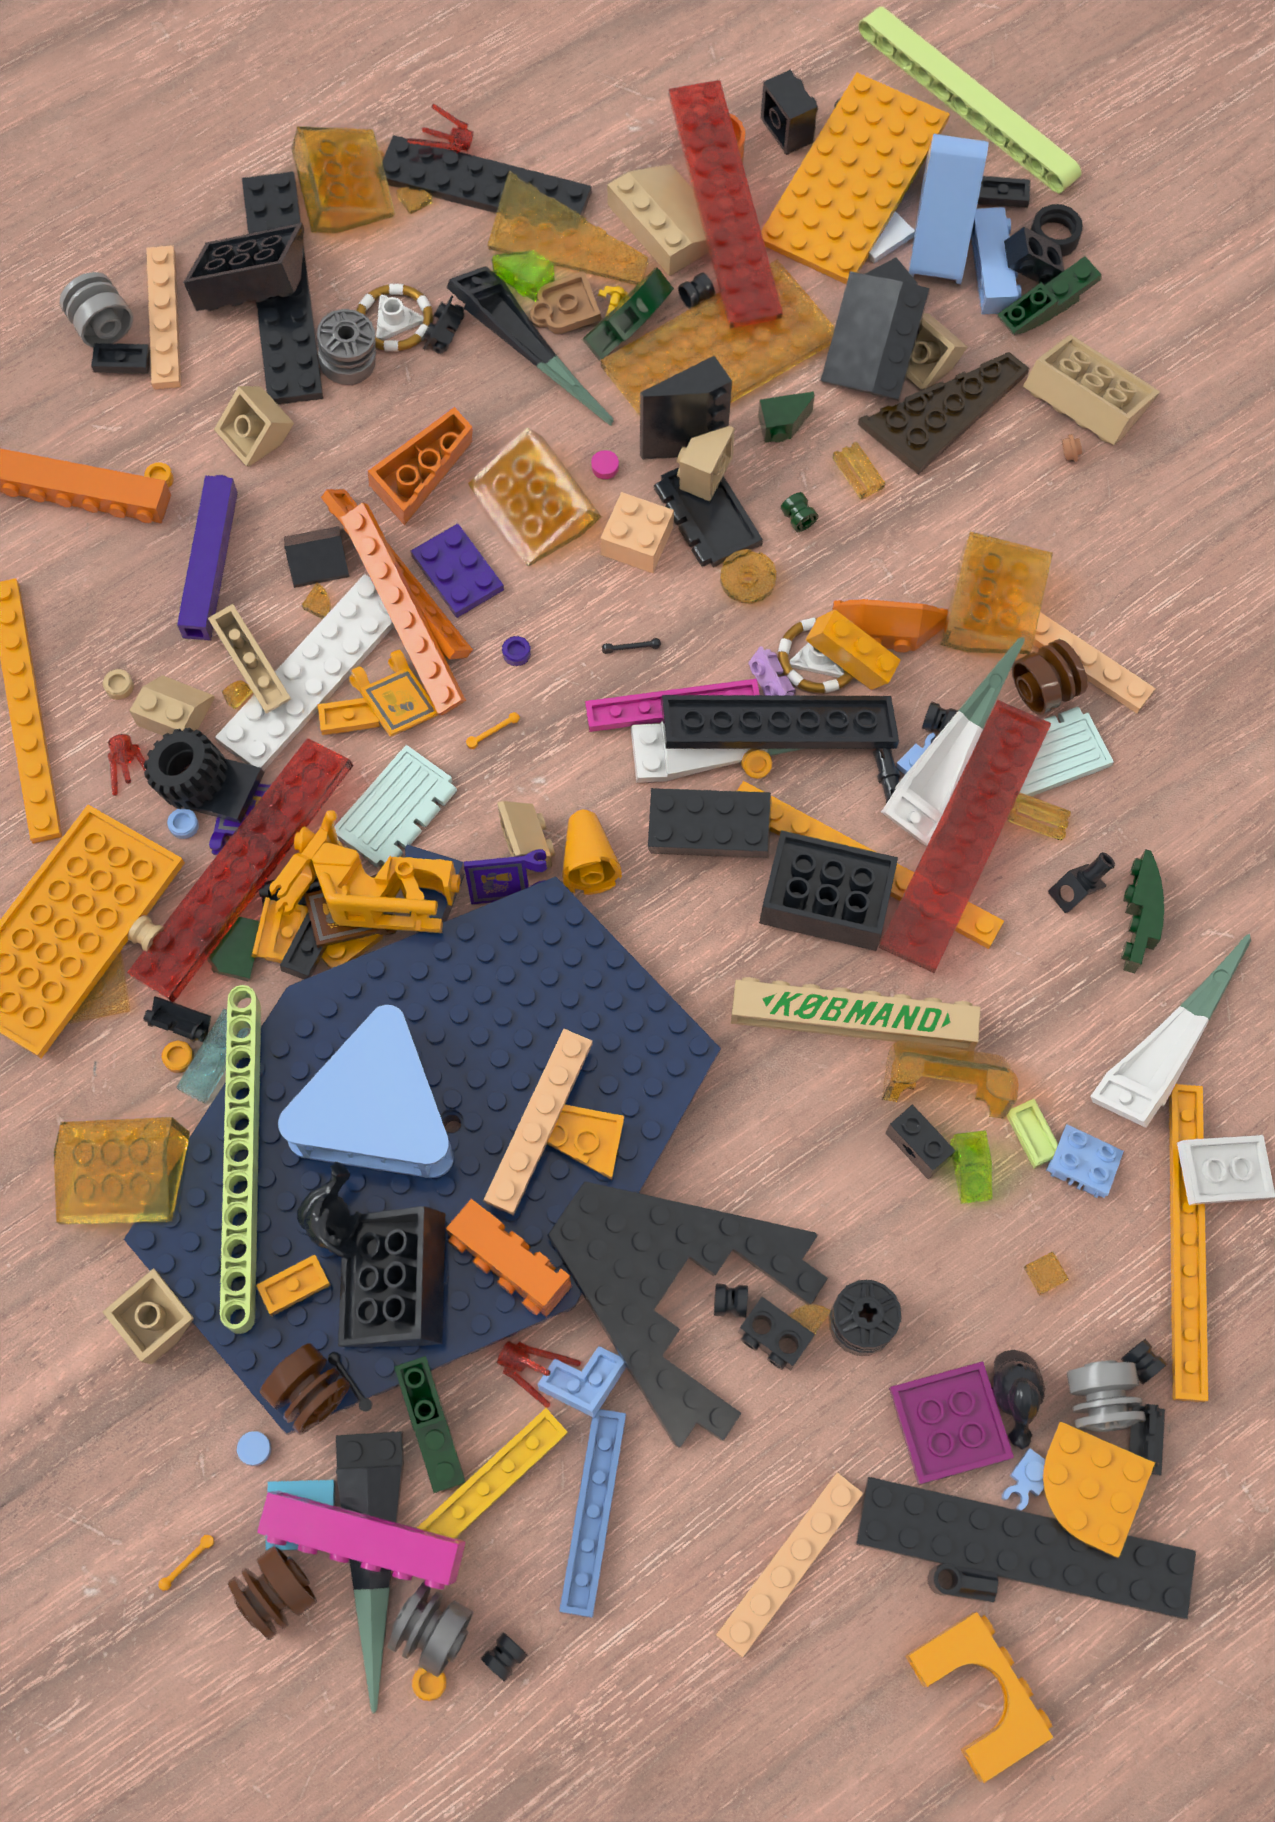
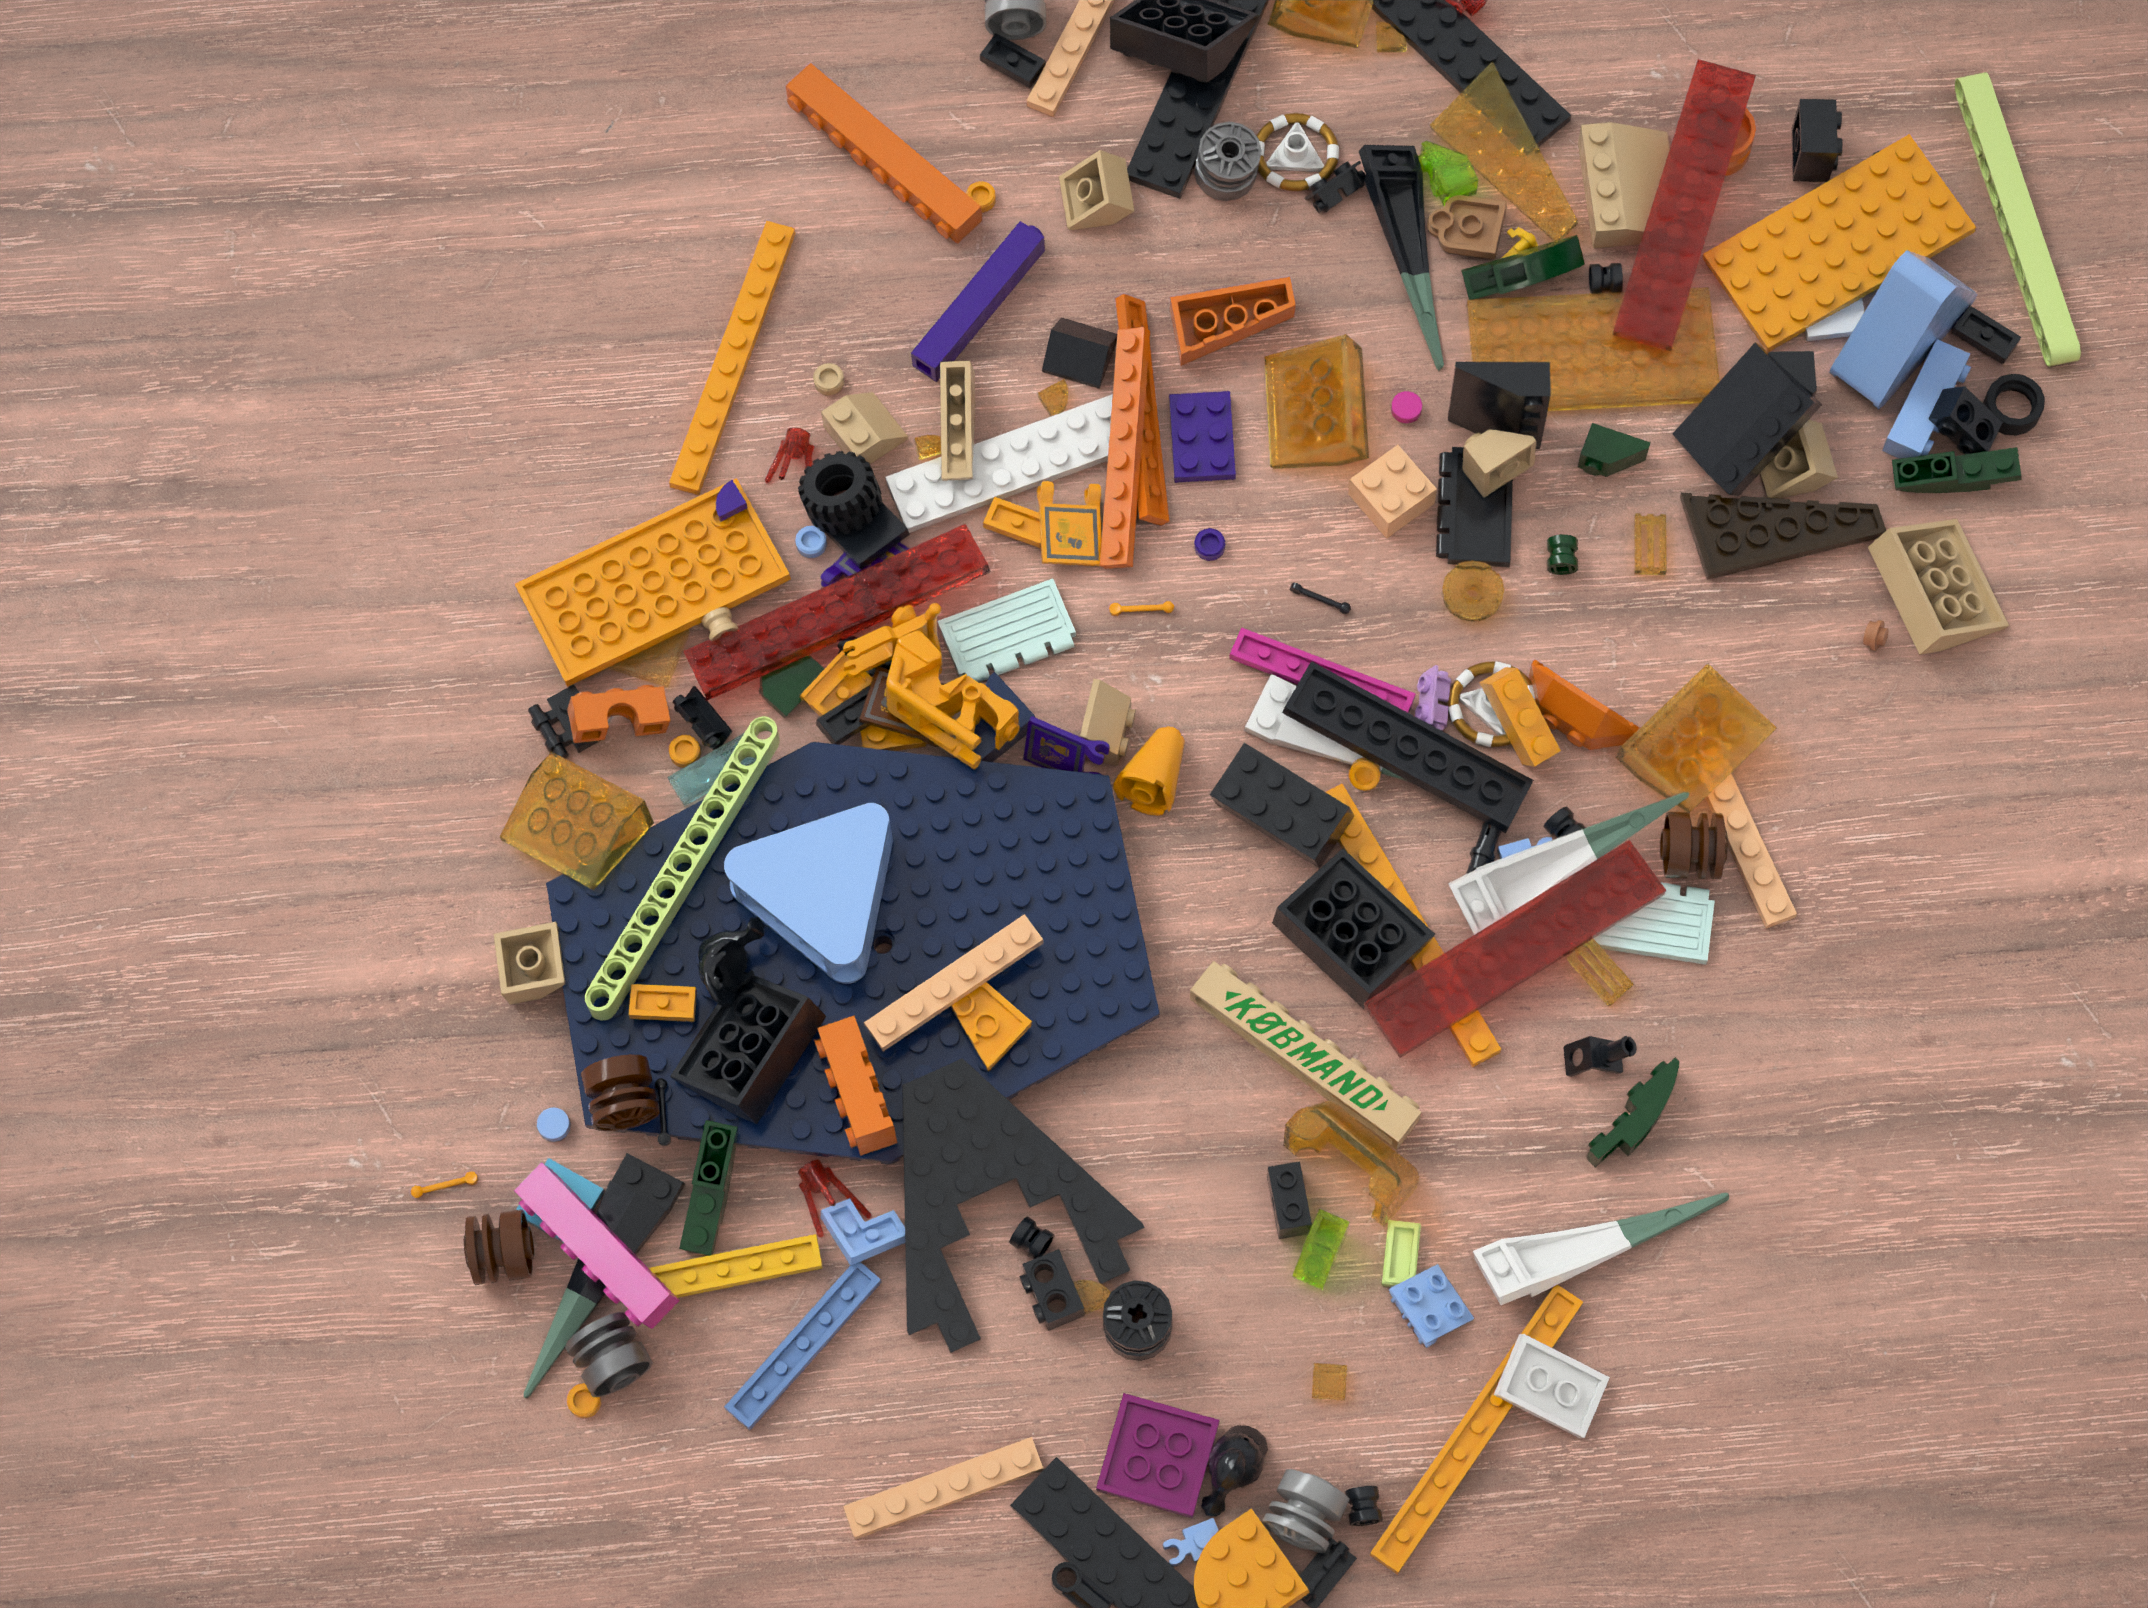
camera: 35 degrees right, 0 degrees up
(63, 1081) = (543, 720): none -> black plate
(93, 825) = (729, 501): none -> dark purple tile
(119, 1039) = (643, 706): none -> orange arch
(504, 1657) = (656, 1415): black wheel -> none

